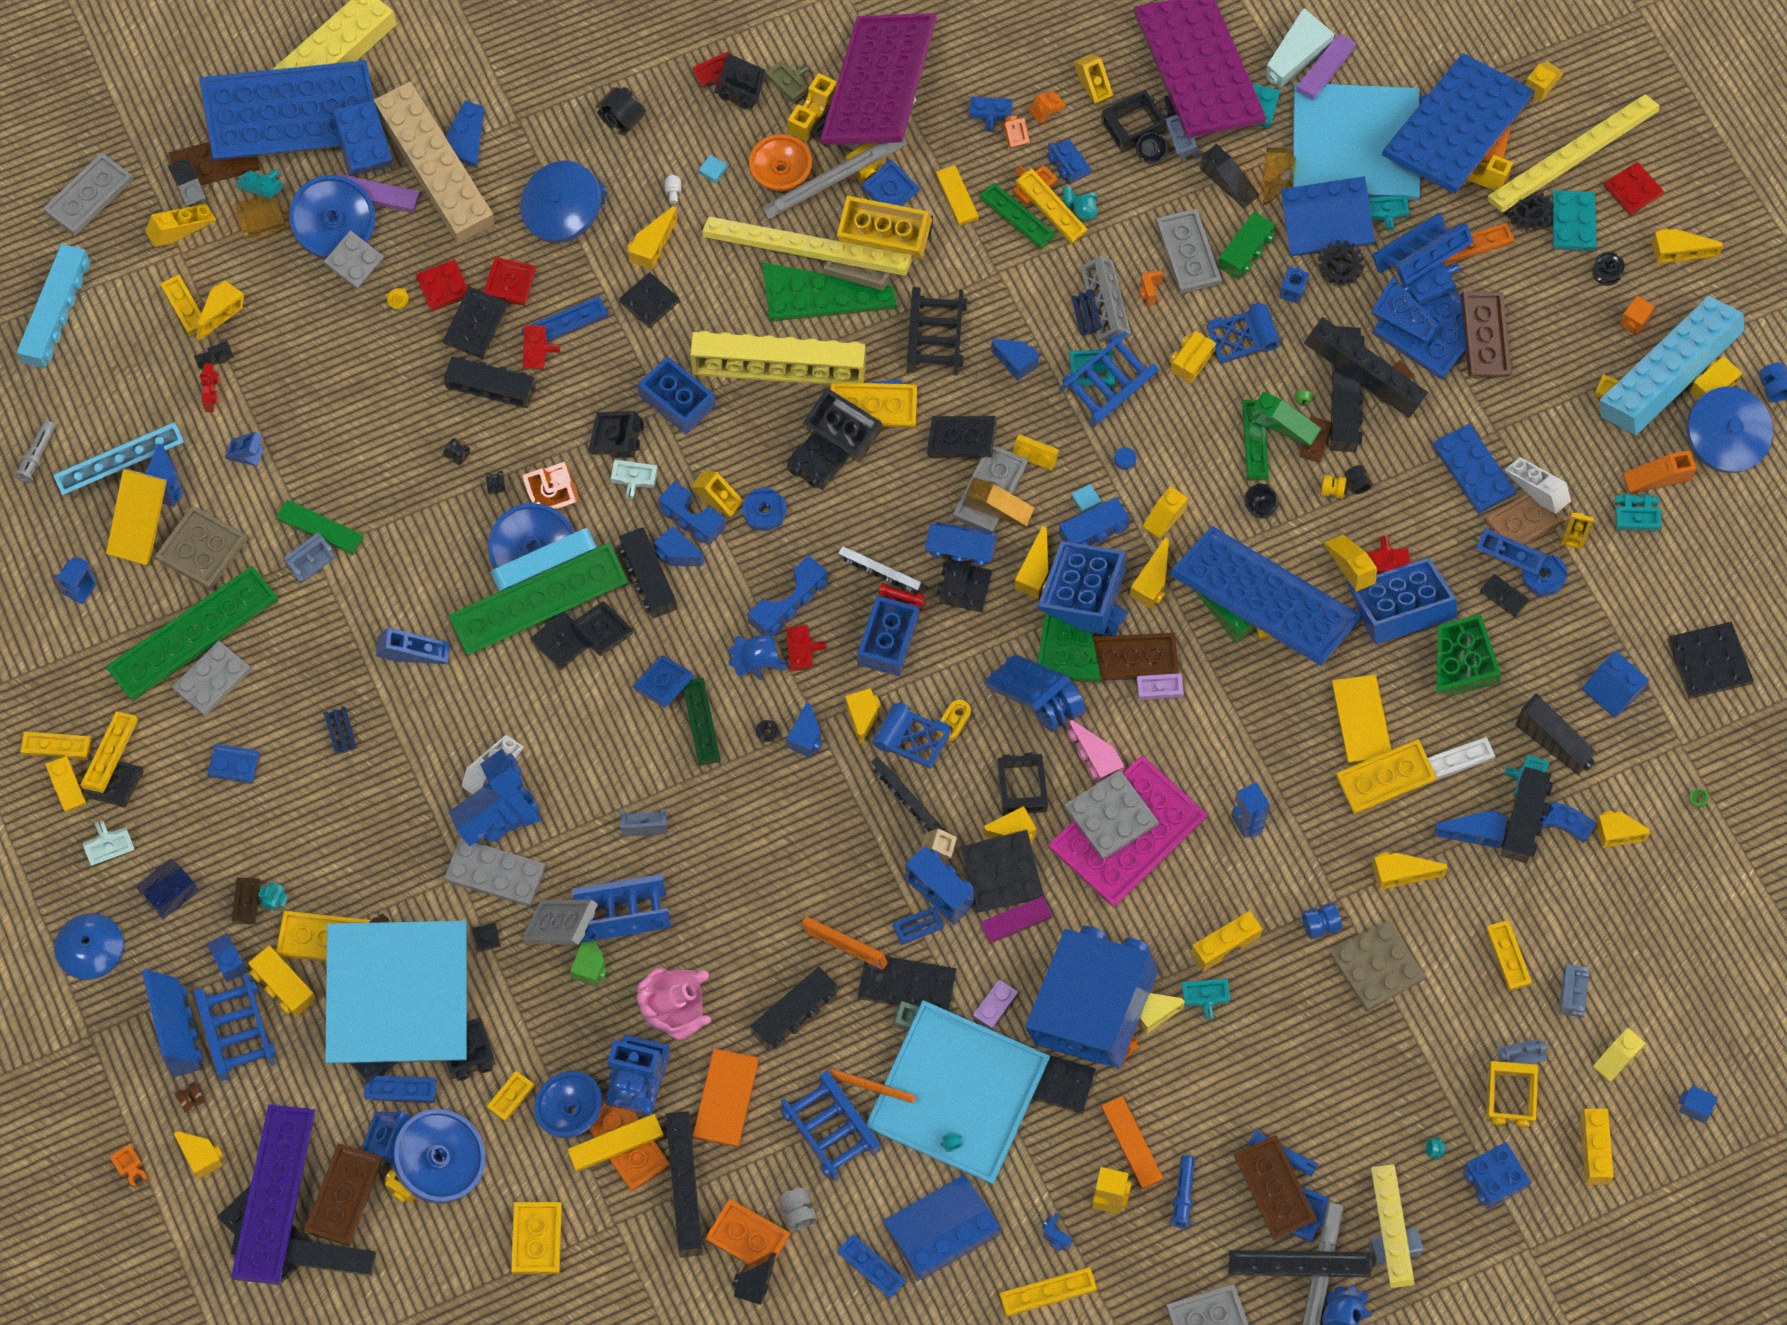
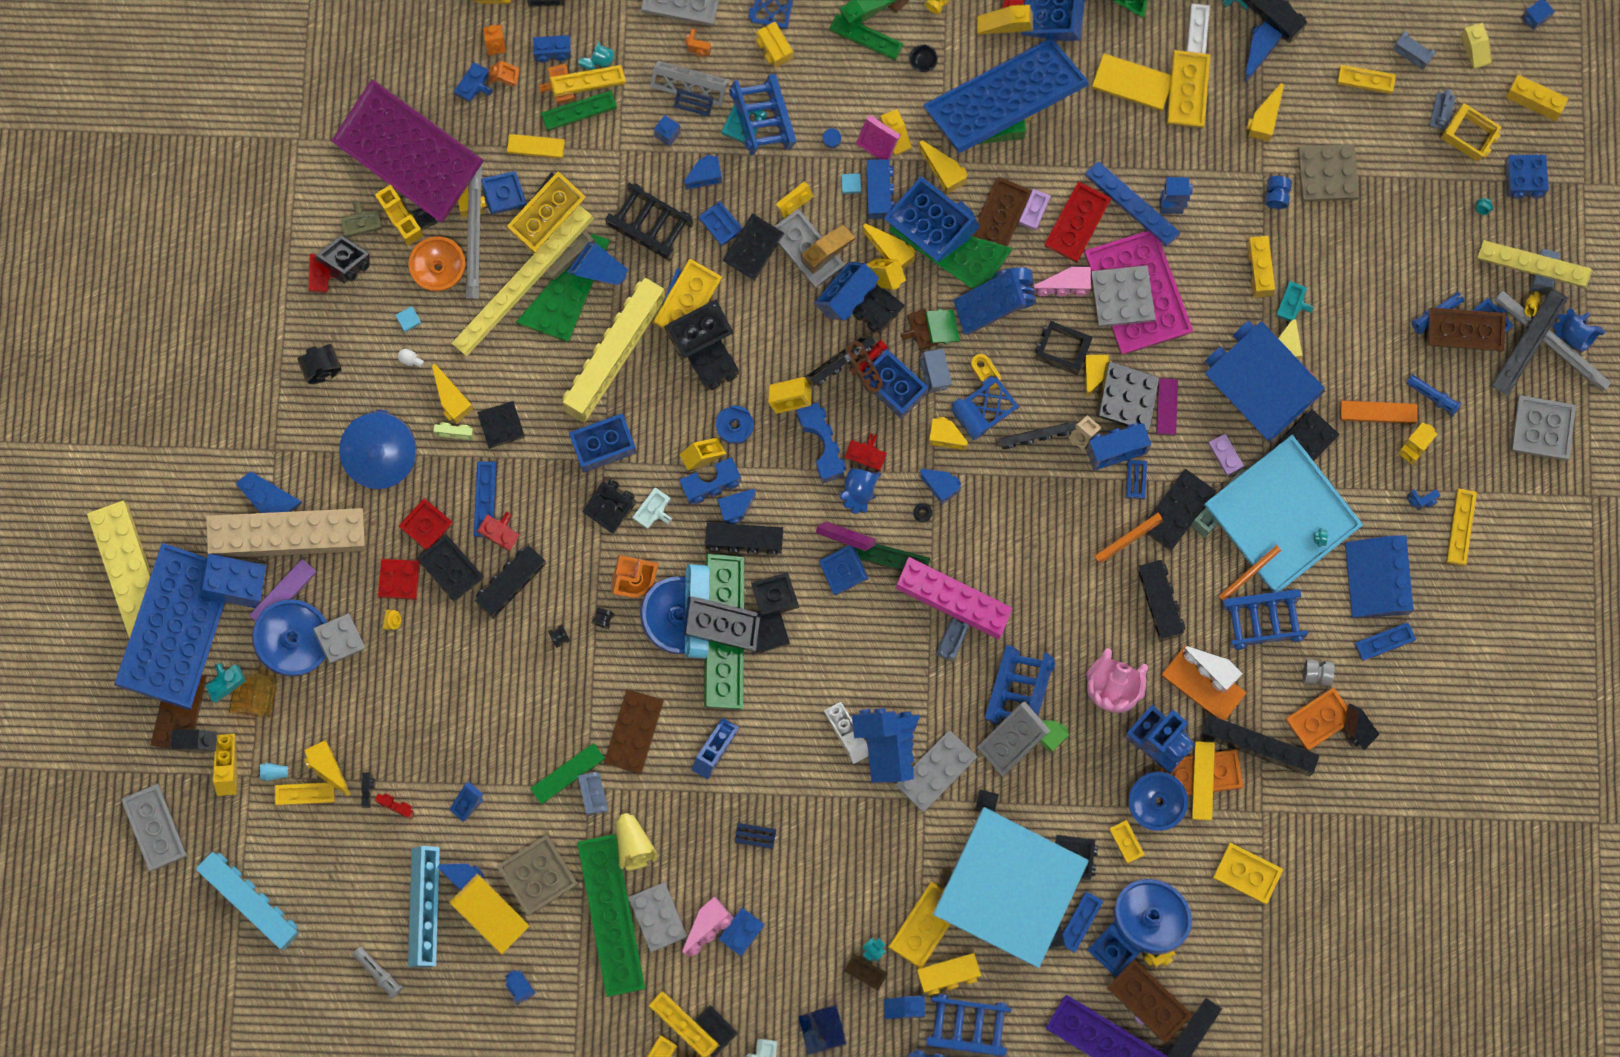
camera: 65 degrees left, 10 degrees up
(191, 265) = (272, 771): none -> medium azure cone
(223, 724) = (708, 923): none -> bright pink slope
(273, 617) = (633, 844): none -> light yellow cone
(393, 567) = (634, 731): none -> reddish brown plate
(539, 586) = (721, 624): none -> plate
(616, 252) = (448, 431): none -> yellowish green plate
(686, 798) = (953, 598): none -> dark pink plate
(698, 664) = (845, 536): none -> magenta tile
(744, 1103) = (1217, 669): none -> white slope
(820, 541) = (790, 395): none -> yellow brick
(858, 303) = (598, 265): none -> blue slope
(886, 573) = (875, 377): none -> reddish brown beam
(927, 670) = (935, 370): none -> sand blue hinge
(964, 638) = (918, 330): none -> reddish brown plate
(971, 396) = (720, 223): none -> blue plate
(979, 655) = (942, 326): none -> piece
(1004, 572) = (888, 271): none -> yellow slope
(1040, 301) = (667, 130): none -> blue brick
(1145, 496) = (877, 138): none -> dark pink plate
(1171, 735) = (1077, 222): none -> red plate
(1221, 779) = (1132, 204): none -> blue plate
(1344, 1245) = (1532, 304): none -> yellow pin

